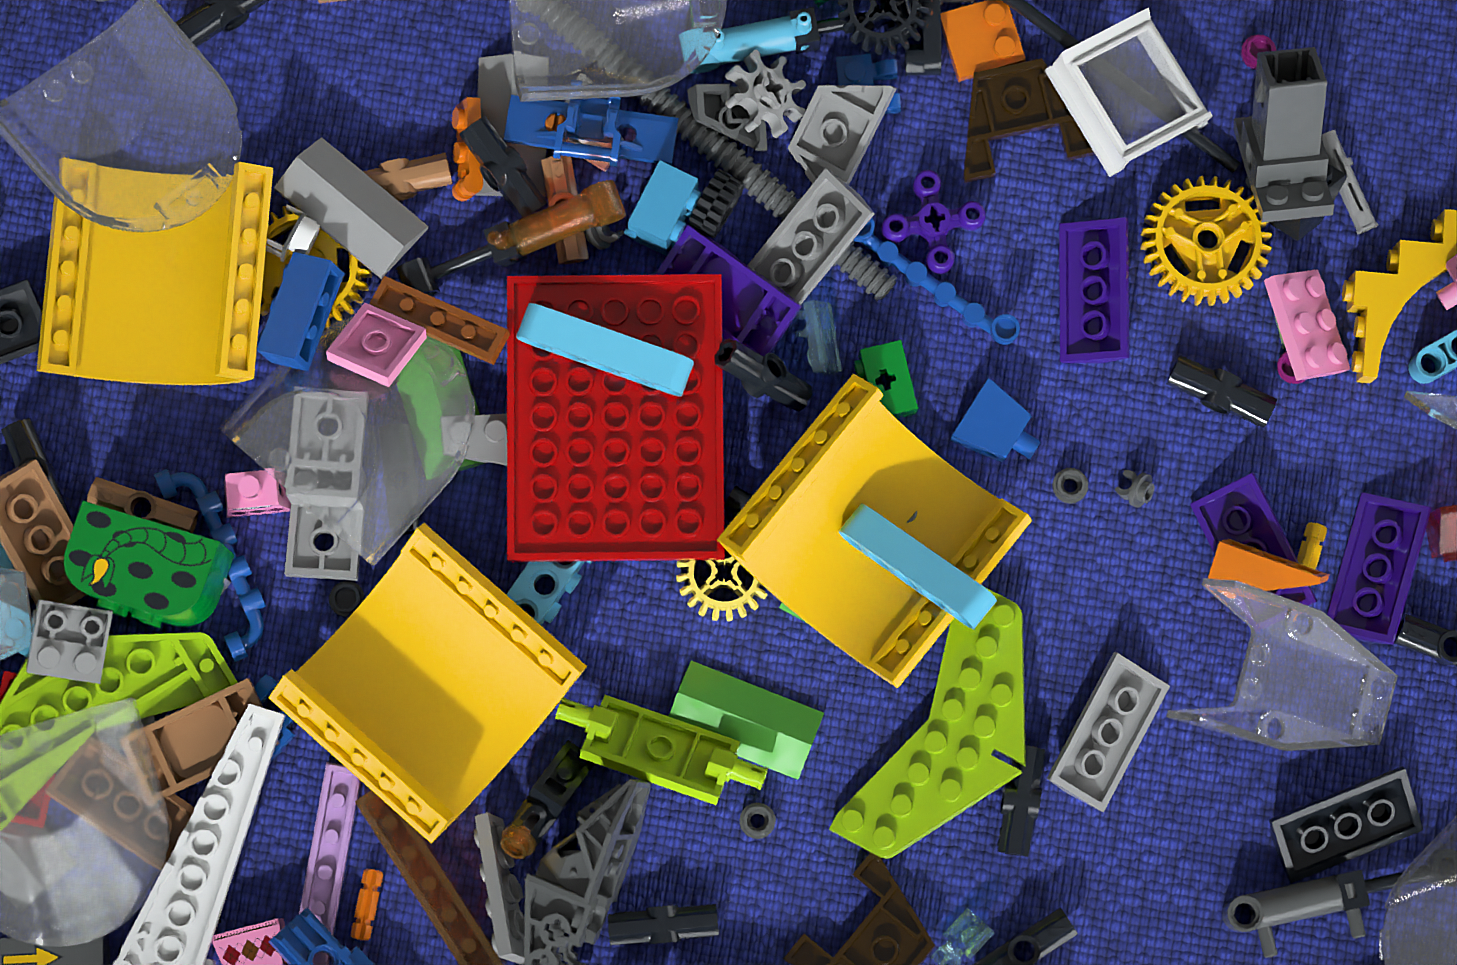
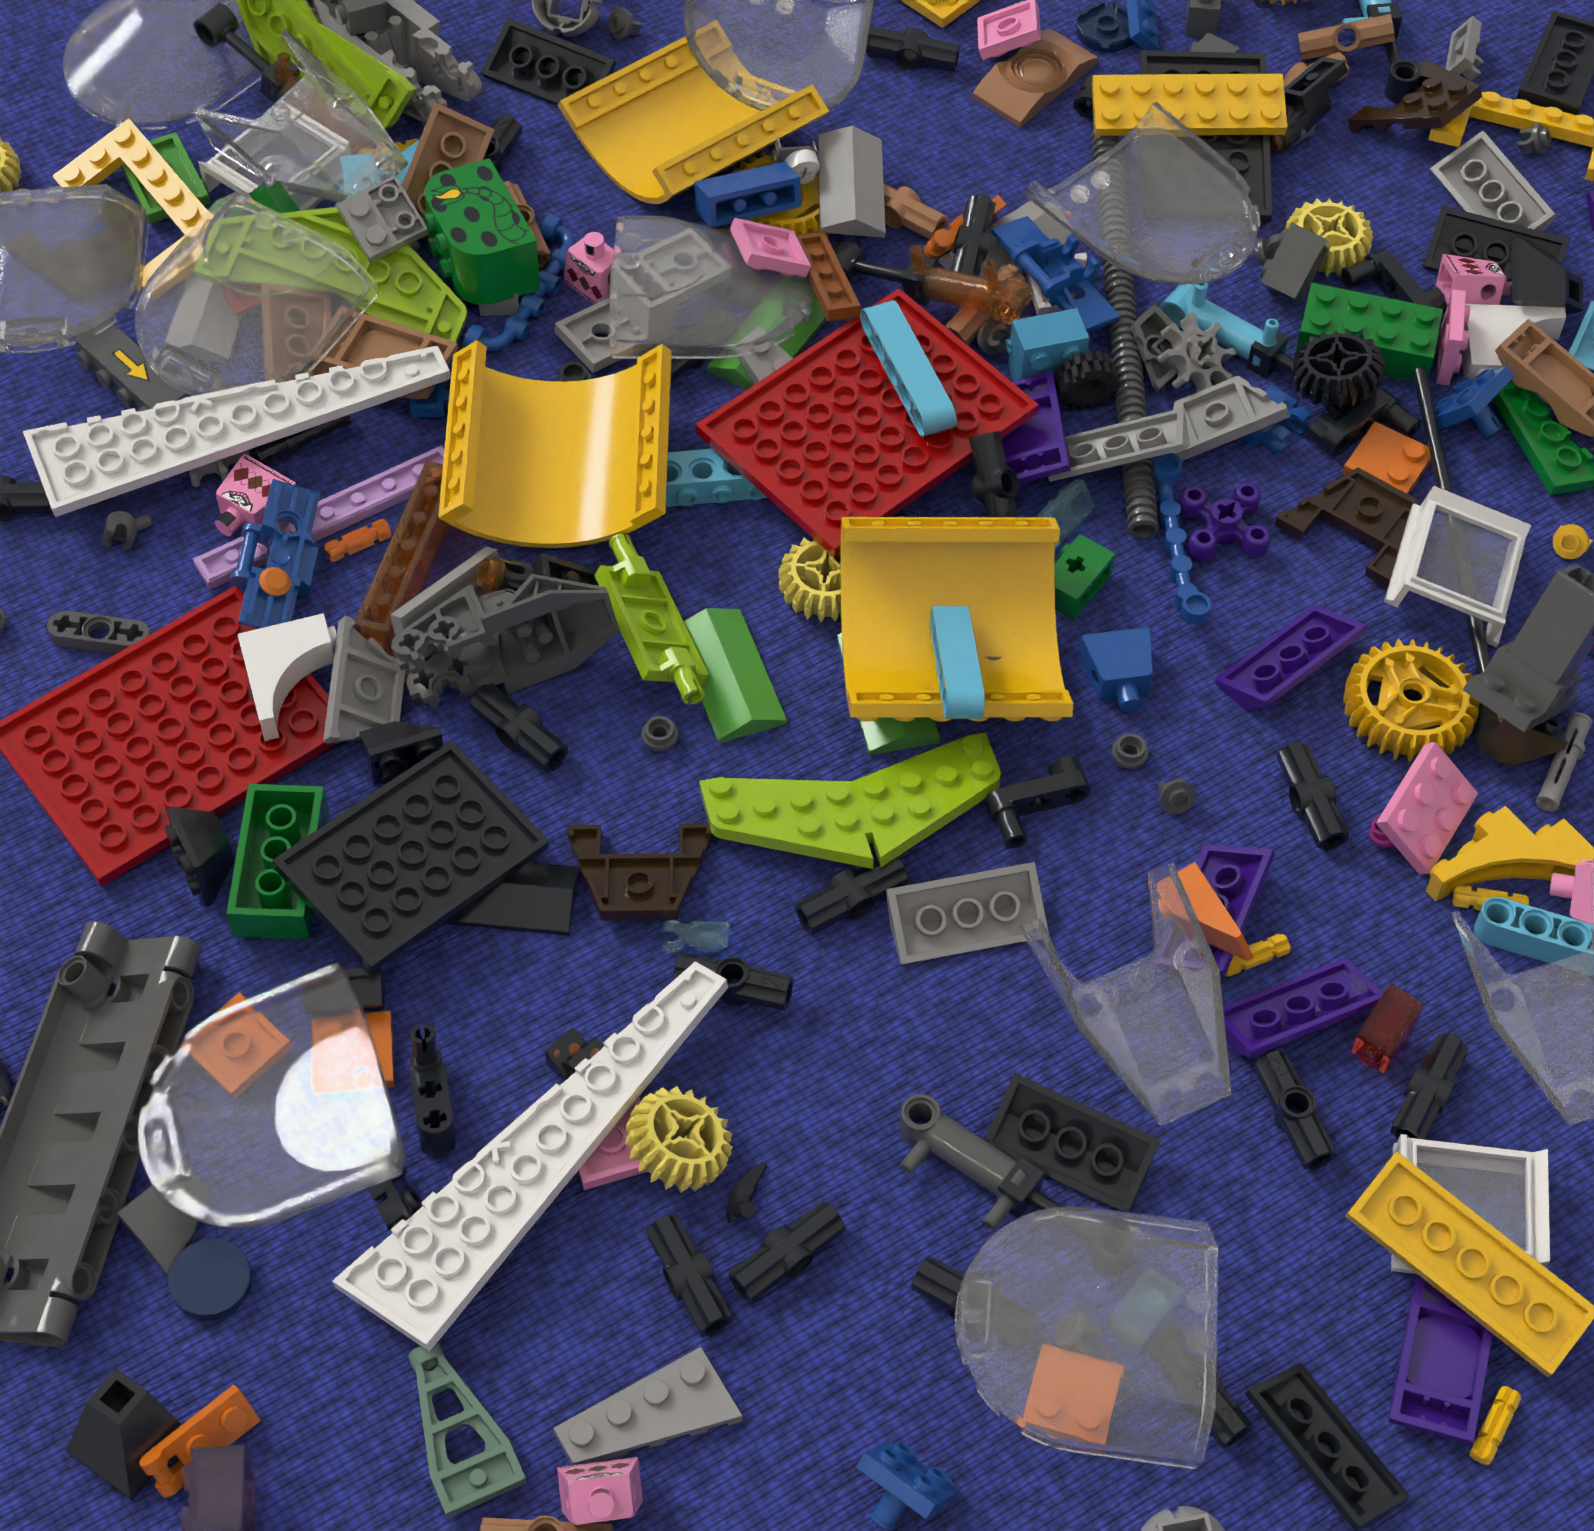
camera: 50 degrees right, 25 degrees down
(1061, 558) = (1063, 787): none -> black beam
(1407, 347) = (1465, 896): none -> yellow axle

